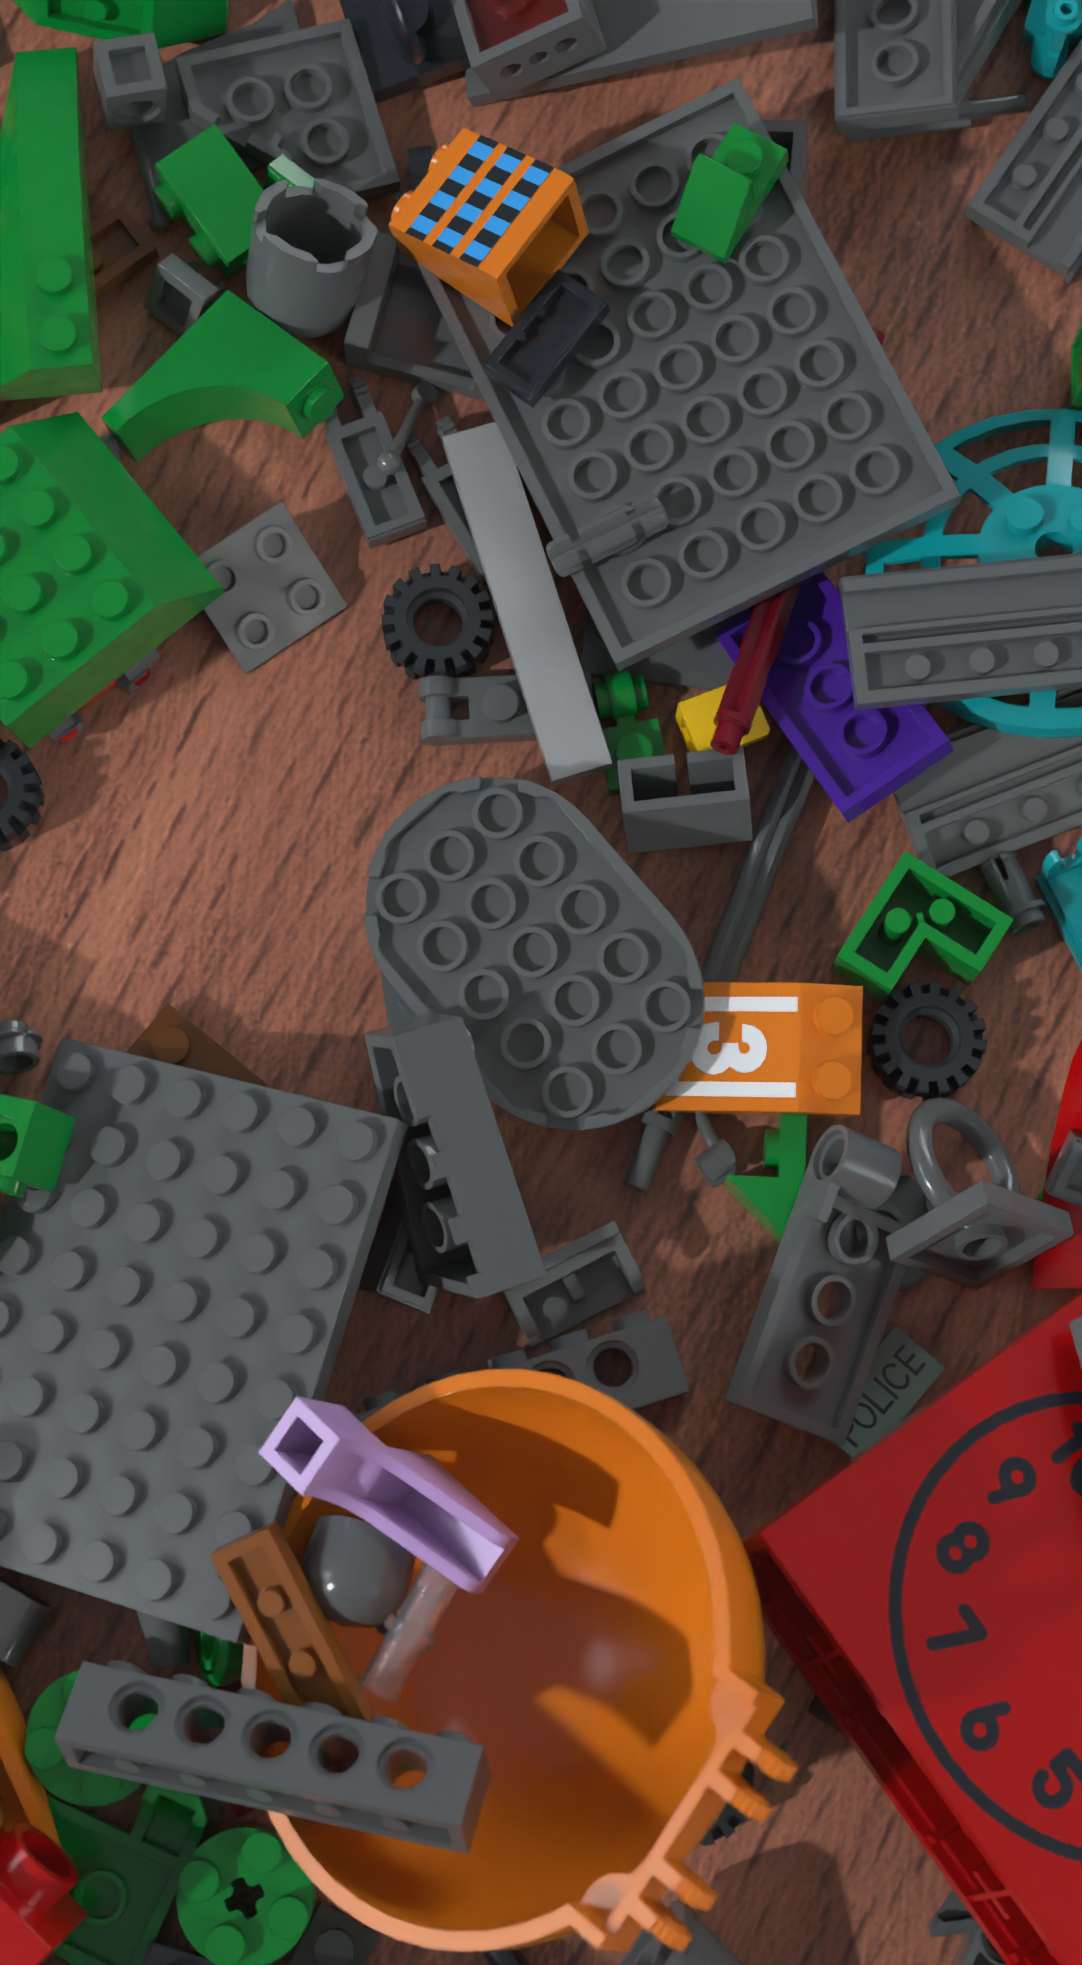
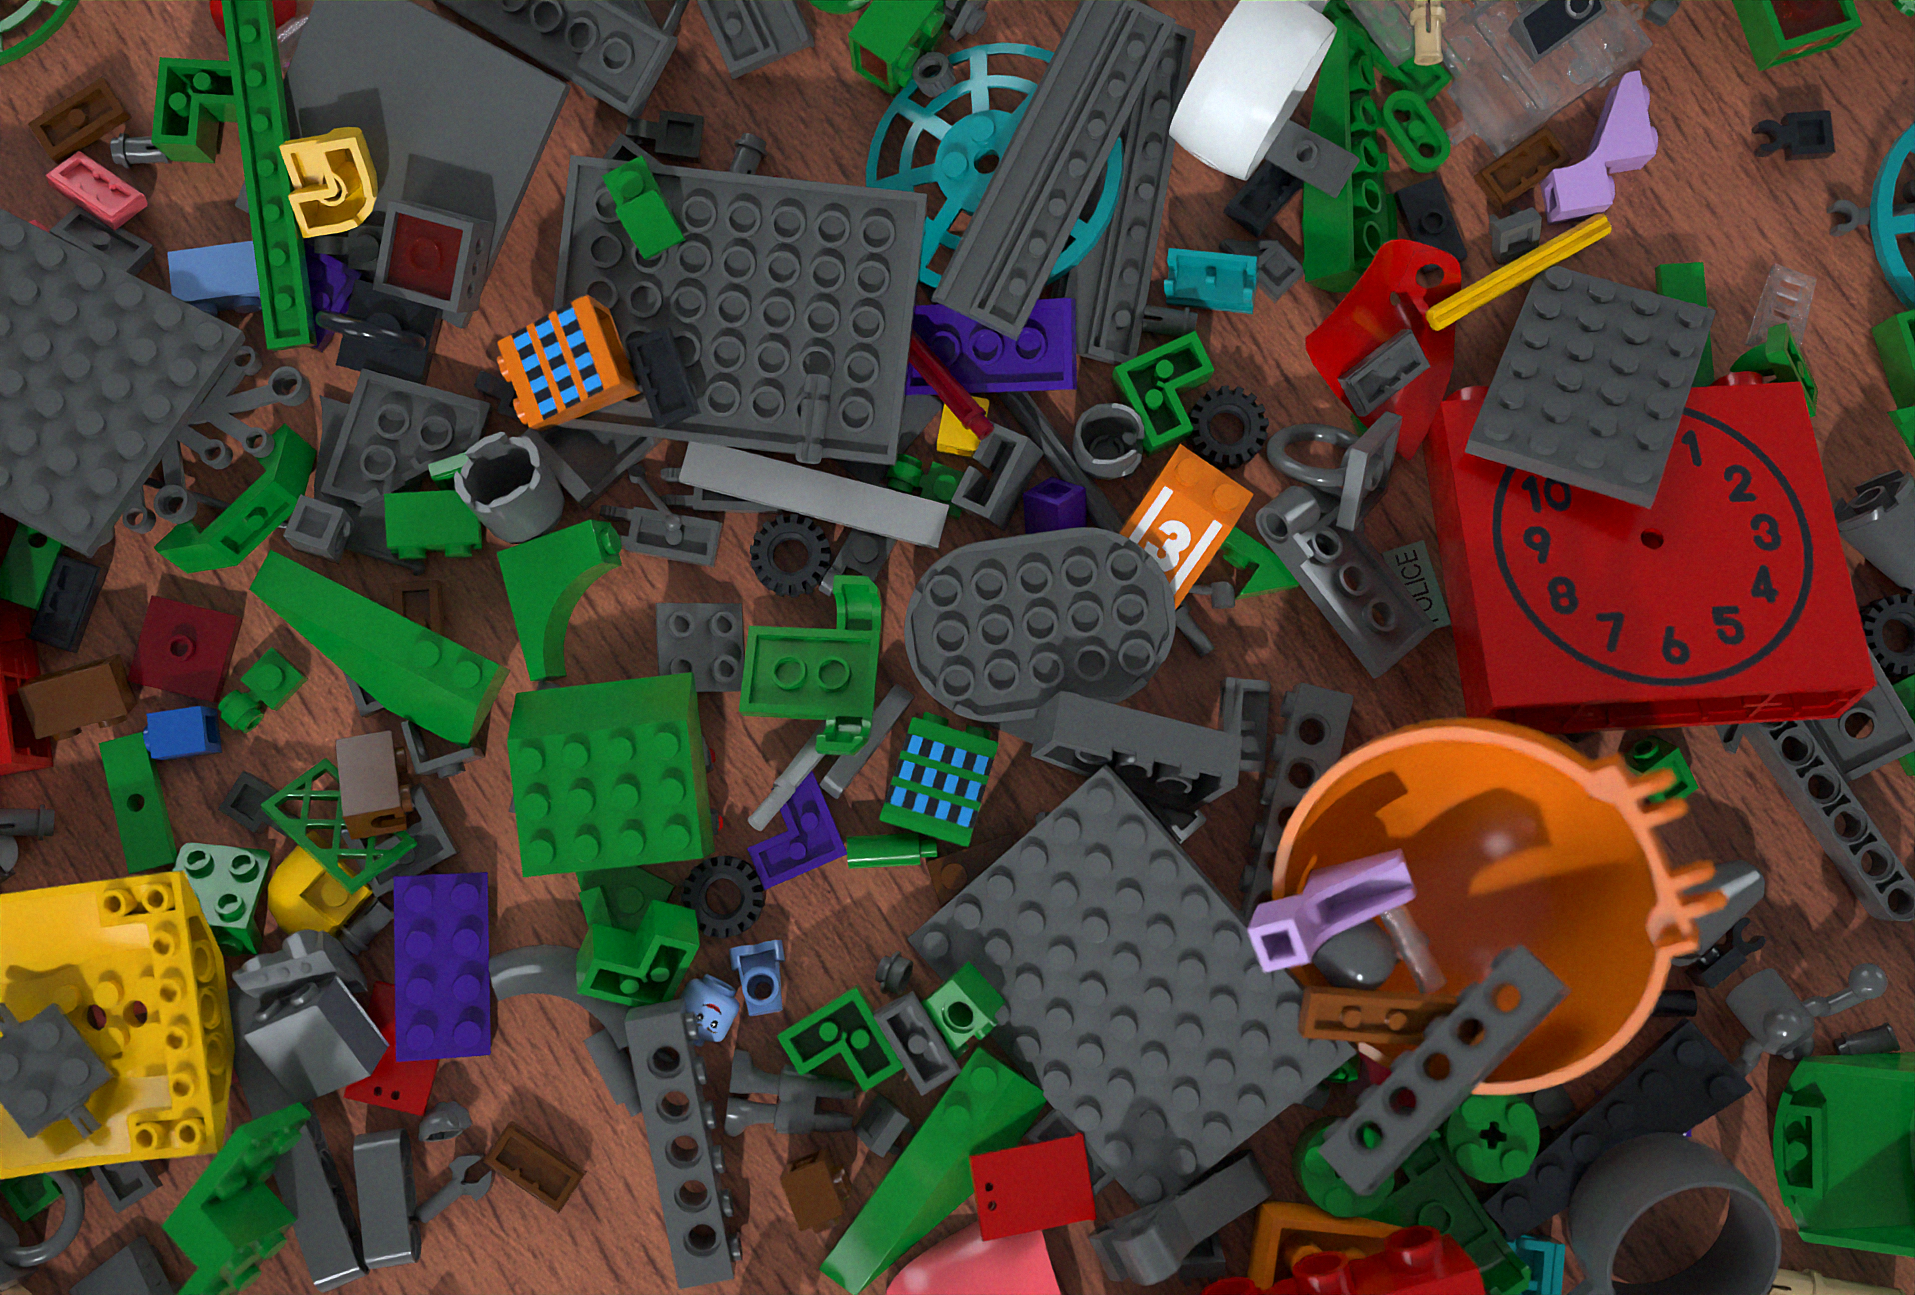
camera: 60 degrees left, 5 degrees up
(112, 851) = (806, 845): none -> dark purple plate
(155, 951) = (888, 850): none -> green cylinder
(180, 293) = (479, 583): dark grey tile -> none
(197, 787) = (788, 782): none -> light grey piece
(271, 845) = (884, 719): none -> dark grey beam
(272, 956) = (940, 779): none -> slope
(320, 736) = (820, 670): none -> green piece
(695, 893) = (1054, 506): none -> dark purple panel
(812, 905) = (1109, 441): none -> dark grey helmet
(842, 1849) = (1657, 754): none -> green bracket
(848, 190) = (675, 135): none -> pearl dark grey plate
(883, 286) = (748, 154): none -> dark grey pin

